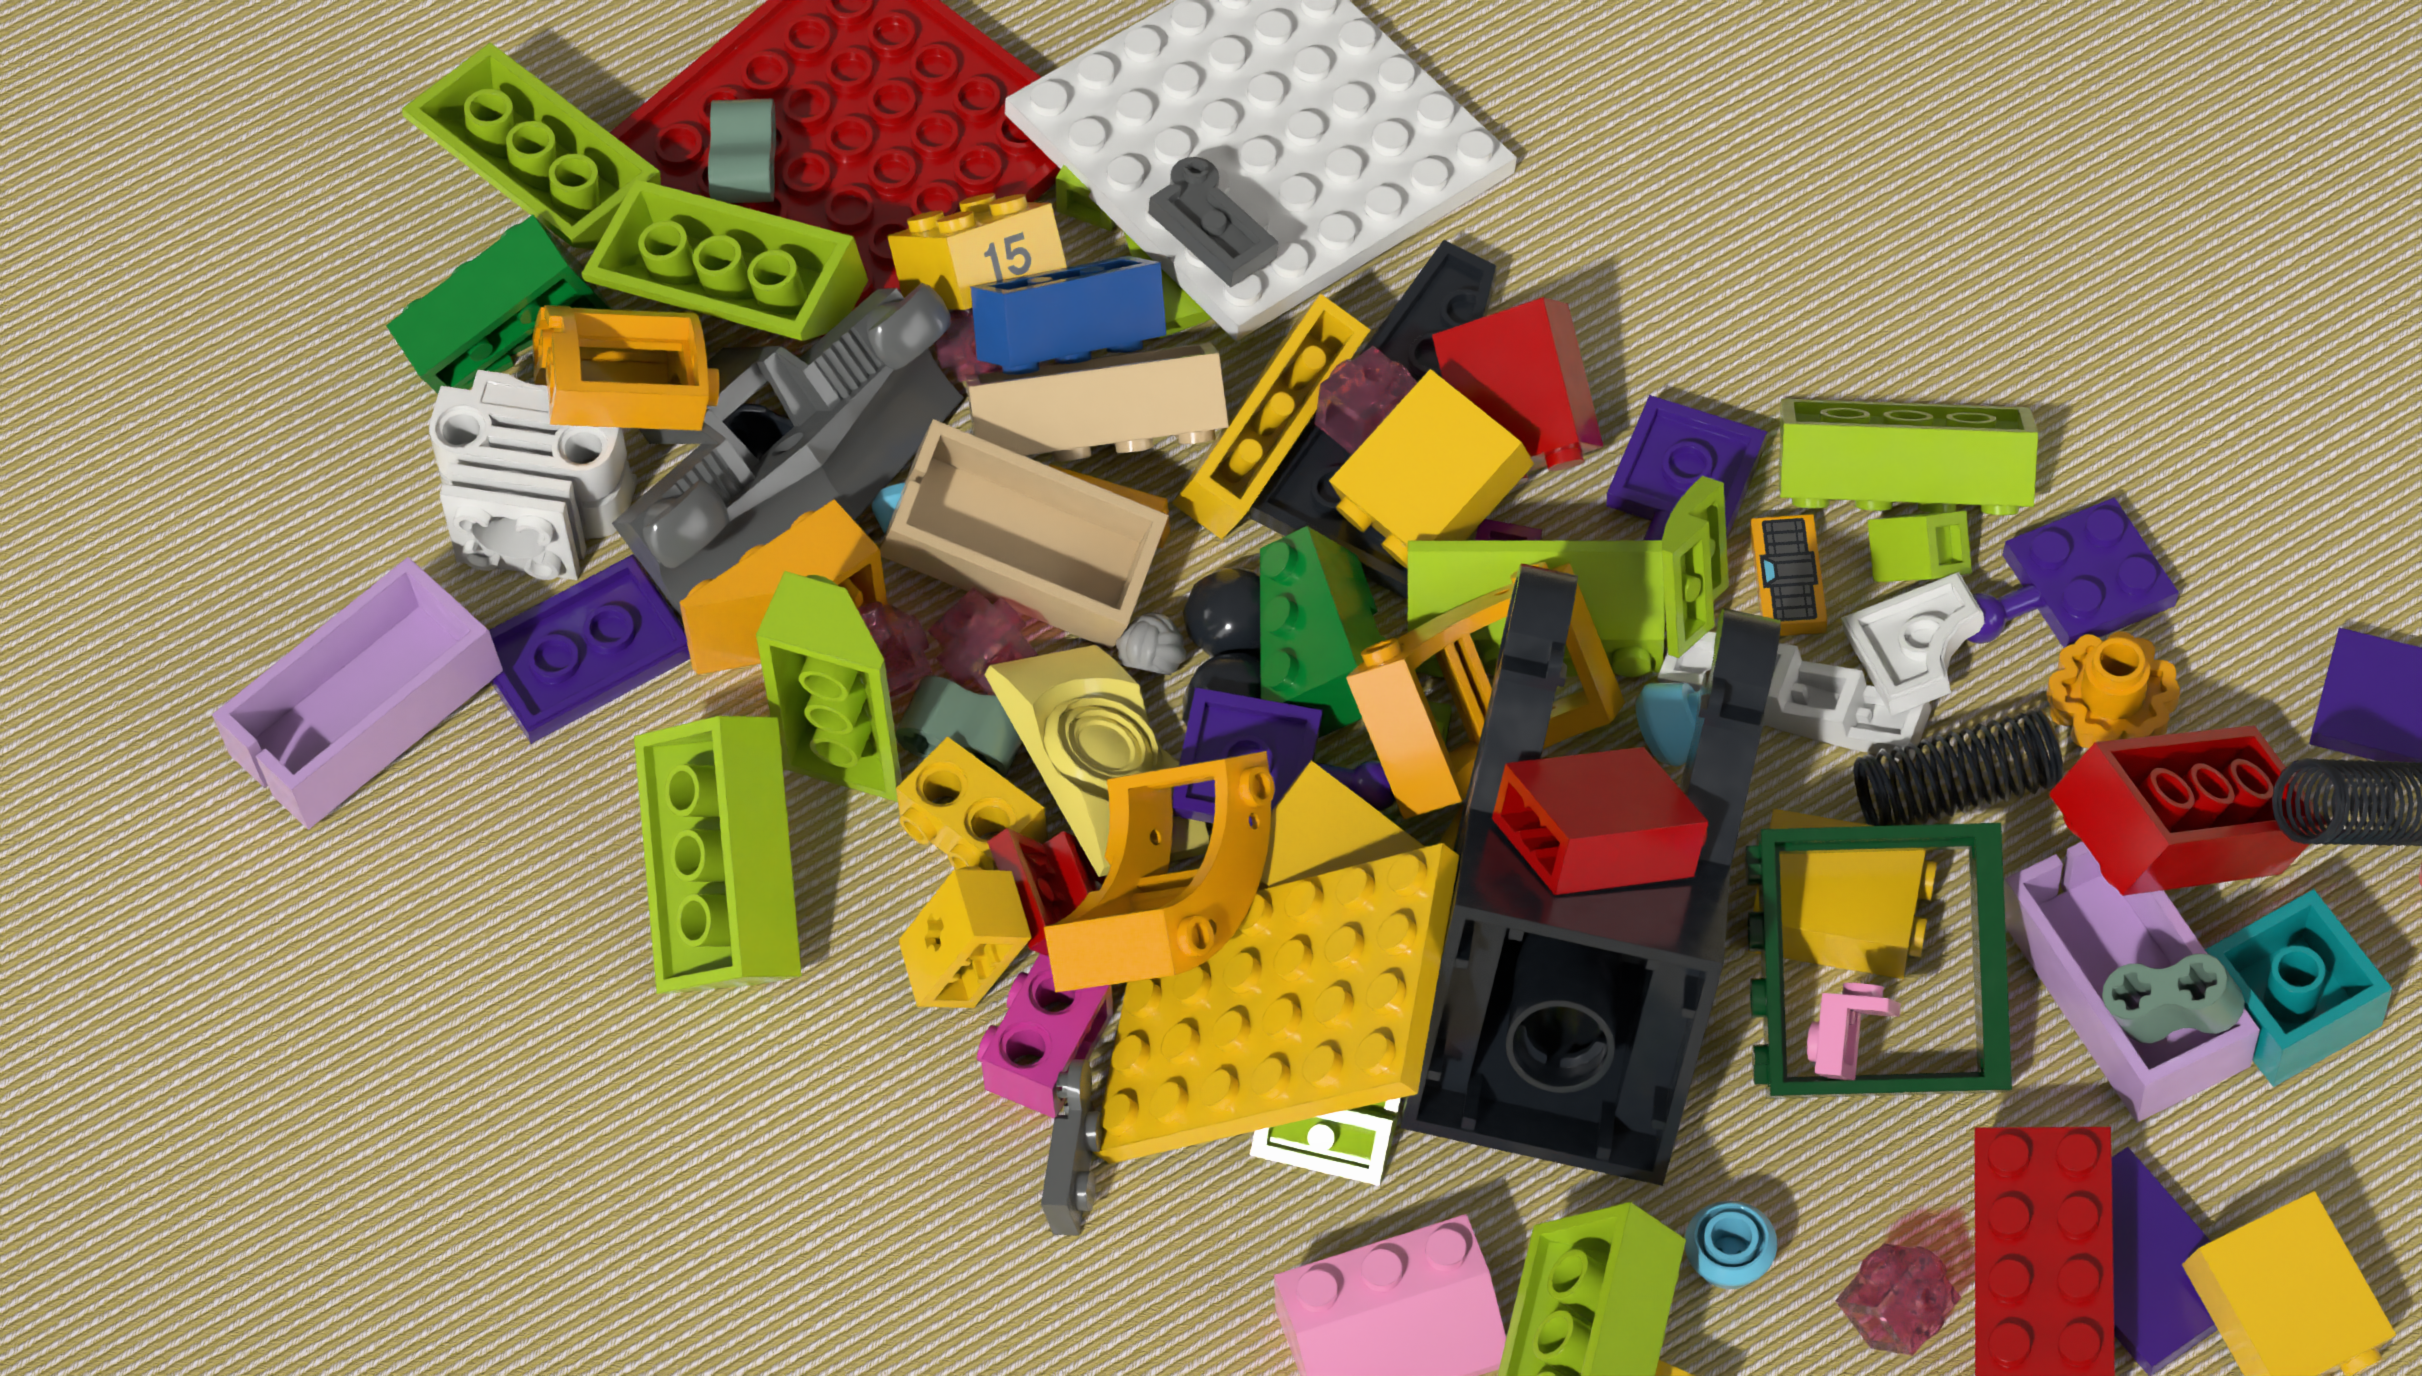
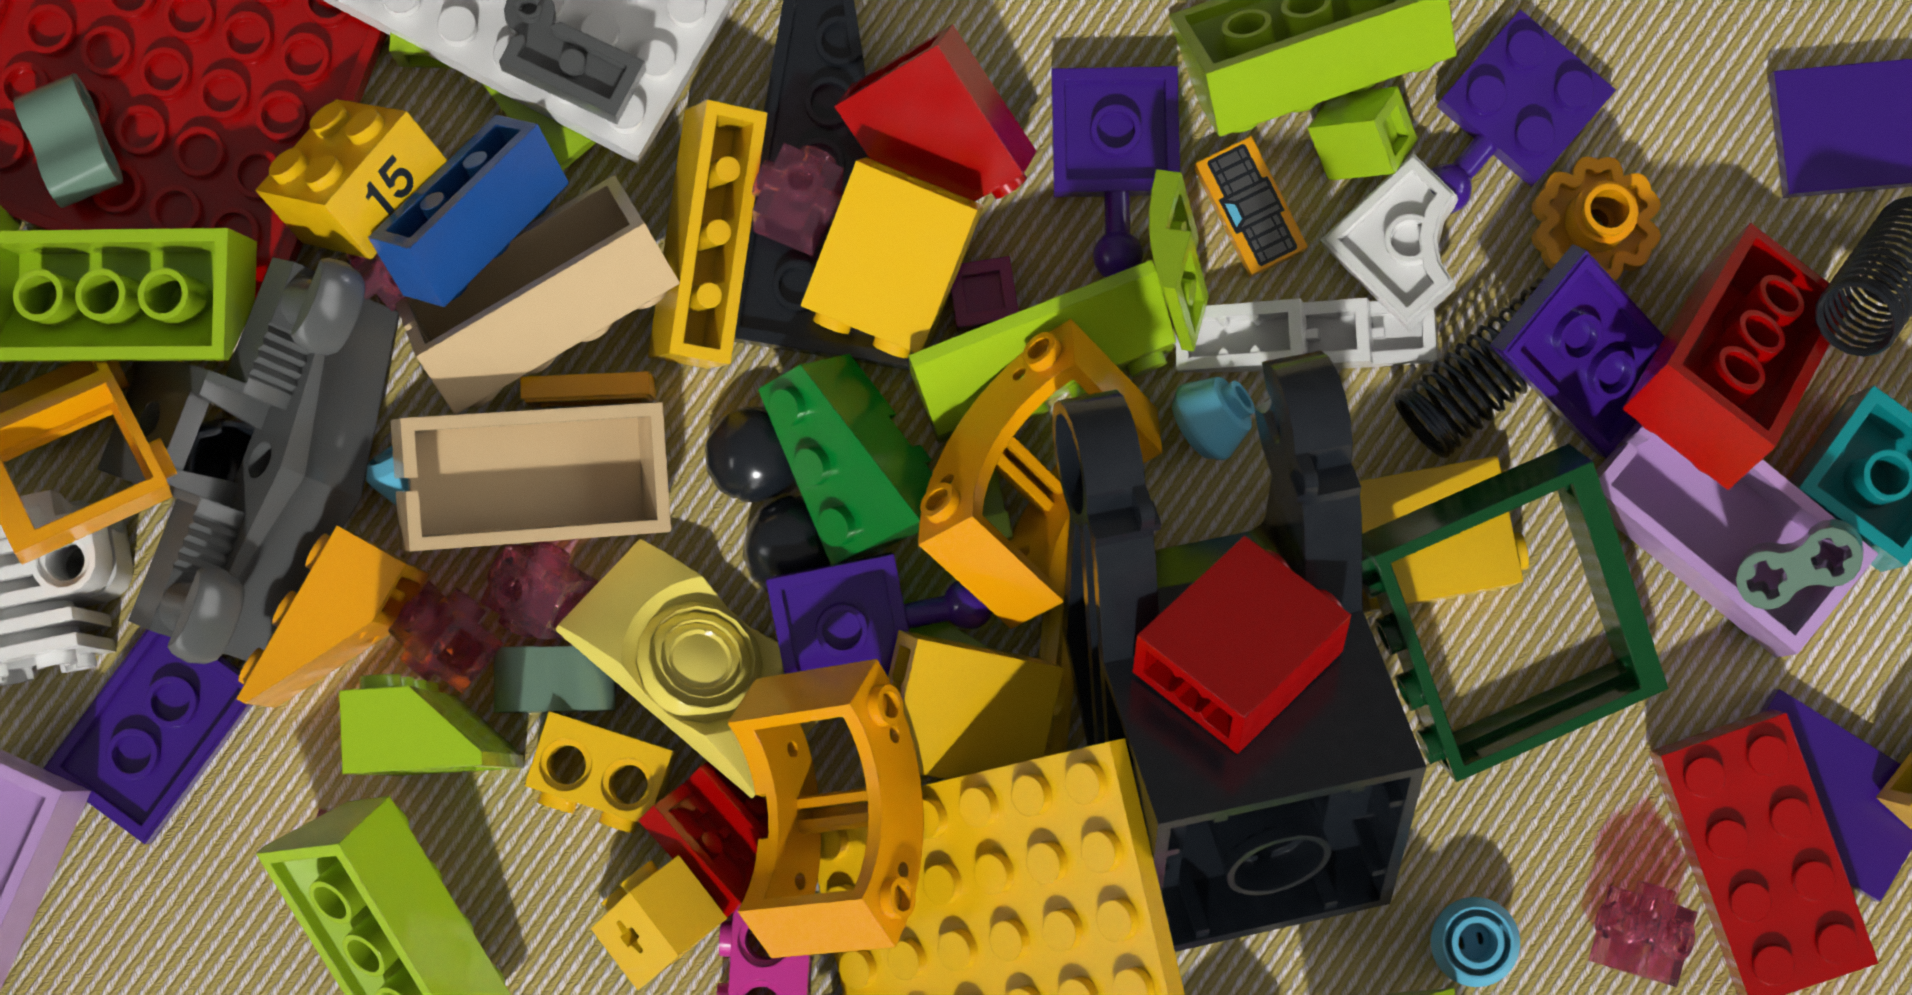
camera: 25 degrees left, 25 degrees up
(1151, 644) = (697, 525): light grey piece -> none
(1836, 1036) = (1511, 689): bright pink bracket -> none
(2024, 749) = (1581, 348): none -> dark purple tile

